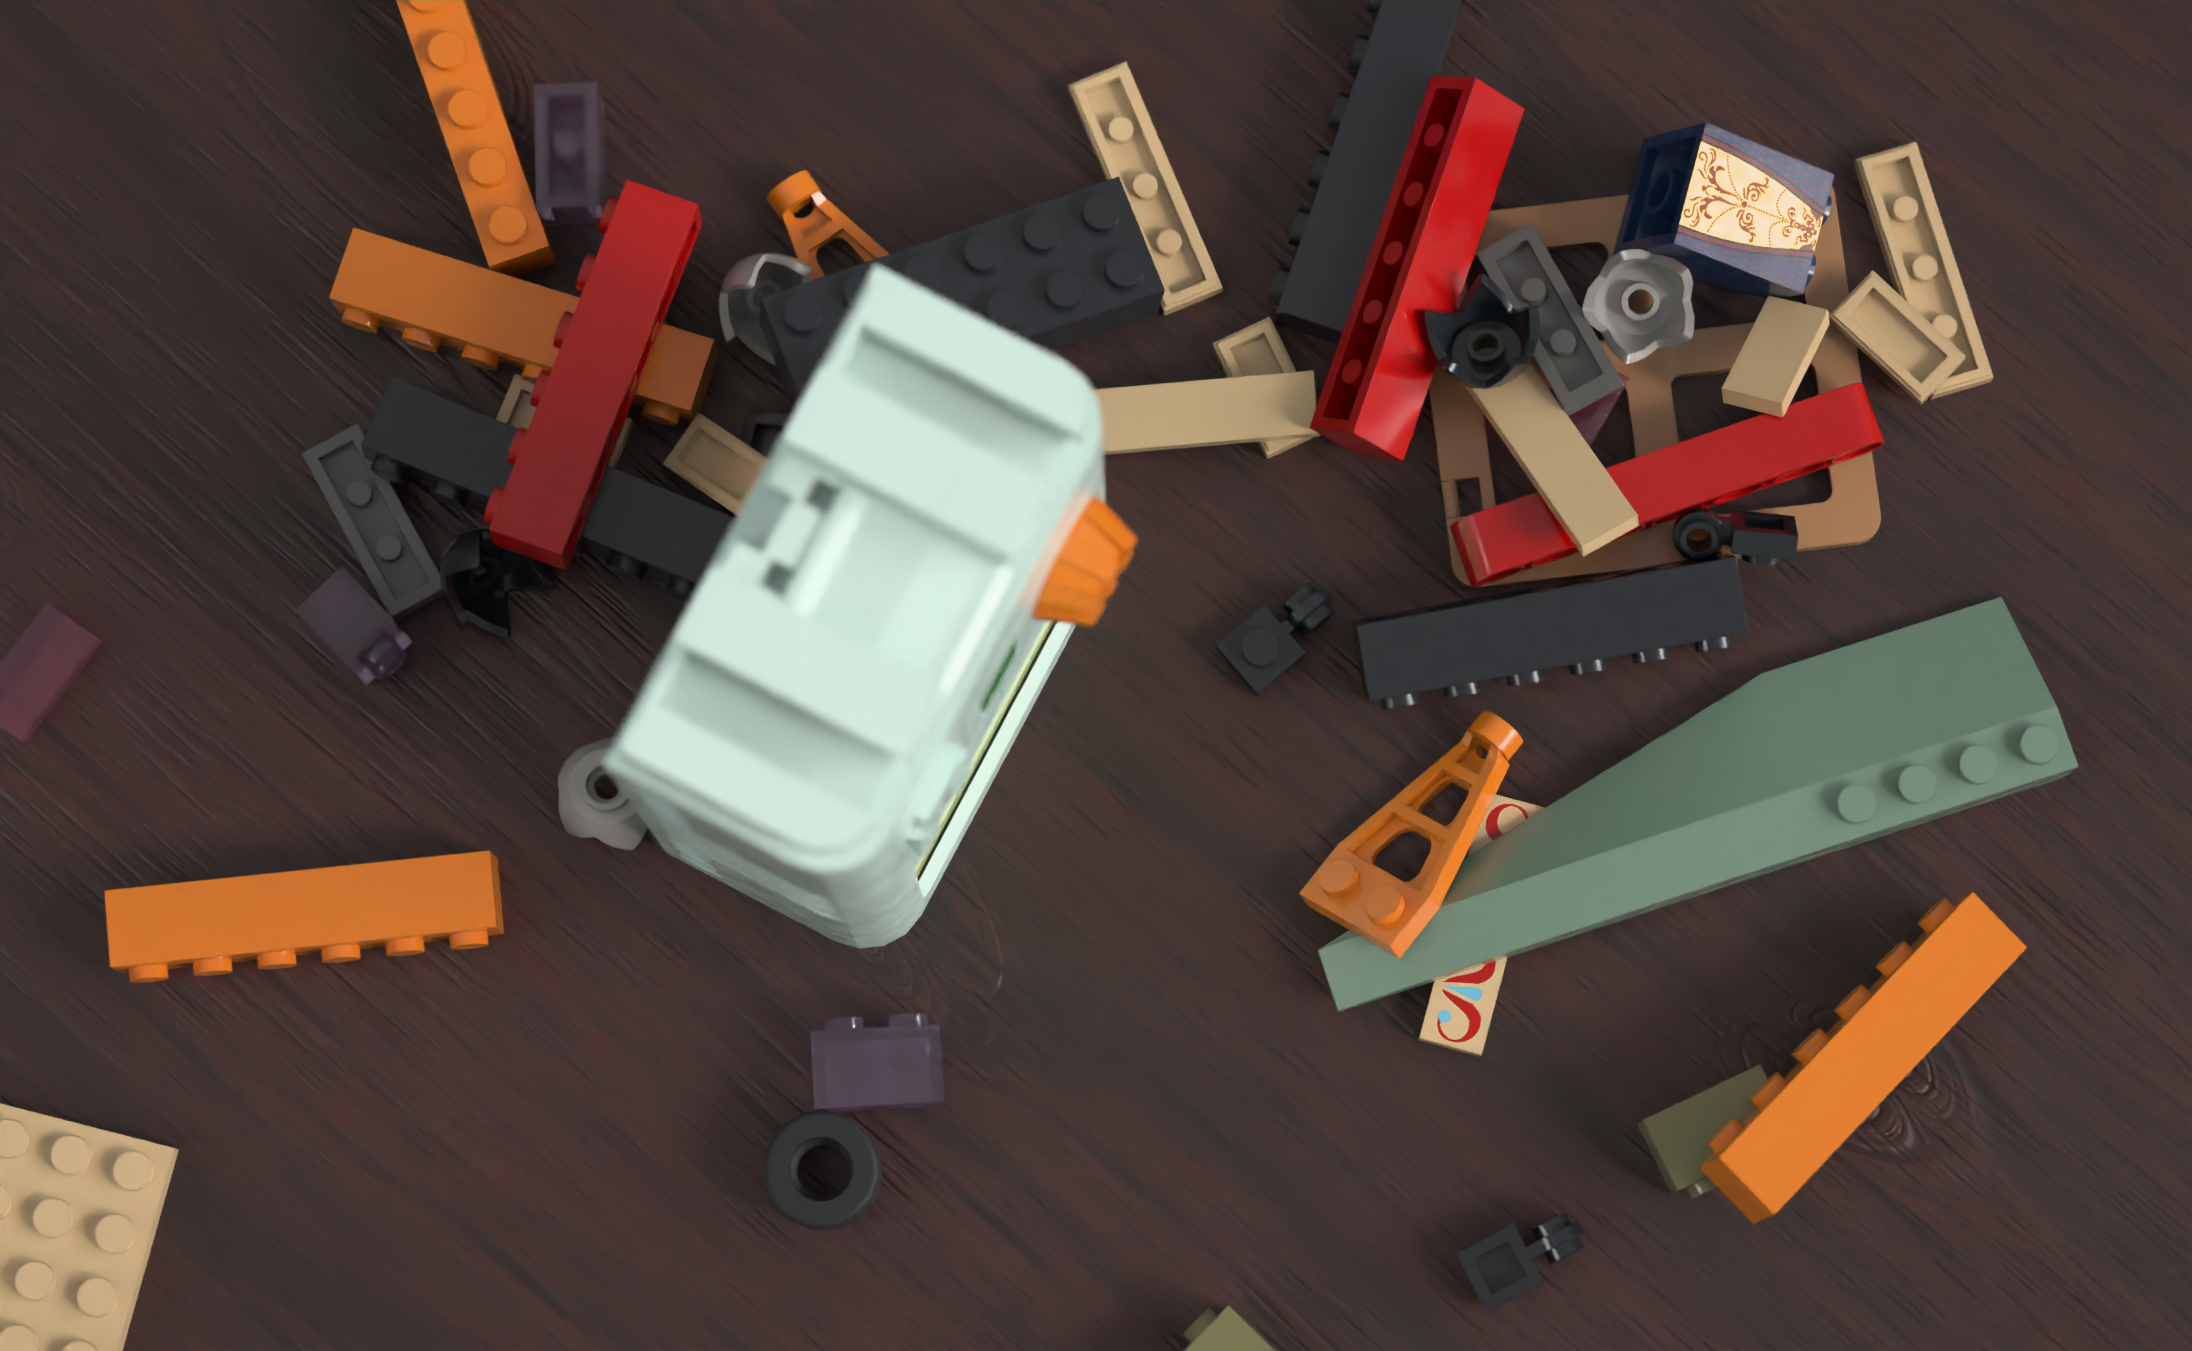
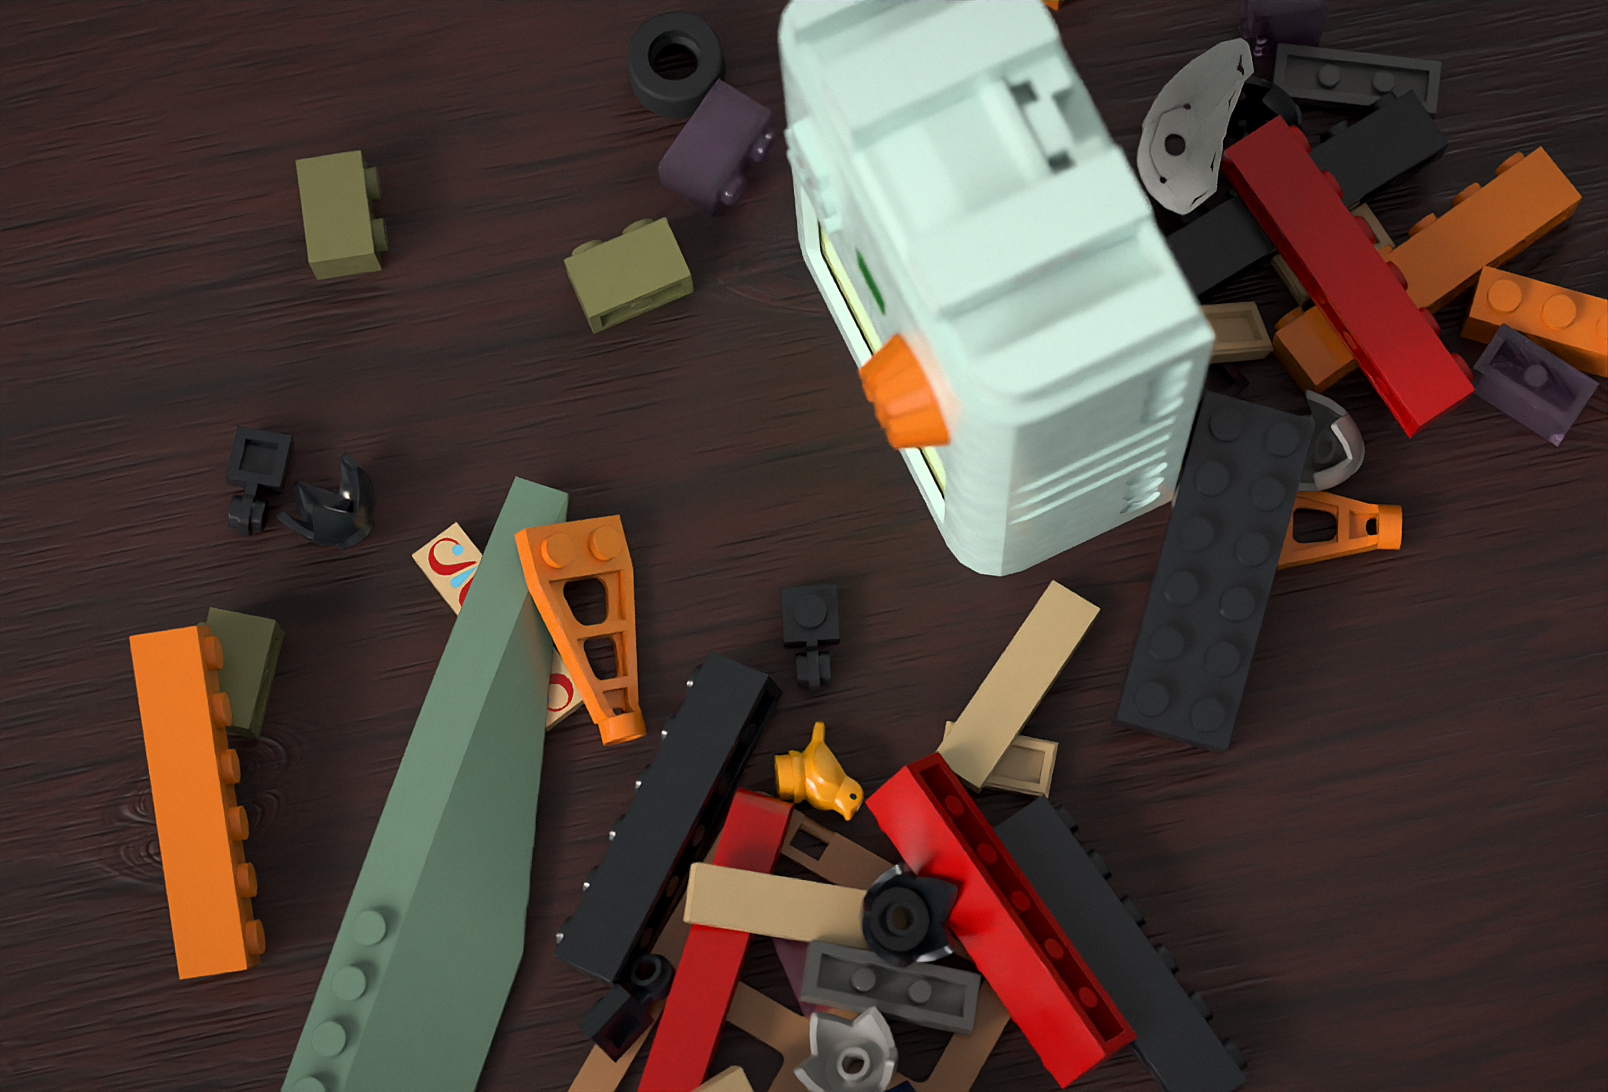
camera: 130 degrees right, 5 degrees down
(540, 611) = (1207, 86): none -> white piece
(1063, 1057) = (628, 273): none -> olive brick
(1132, 150) = (1212, 782): tan tile -> none
(1407, 529) = (817, 778): none -> light orange animal
(1498, 1155) = (332, 515): none -> black piece

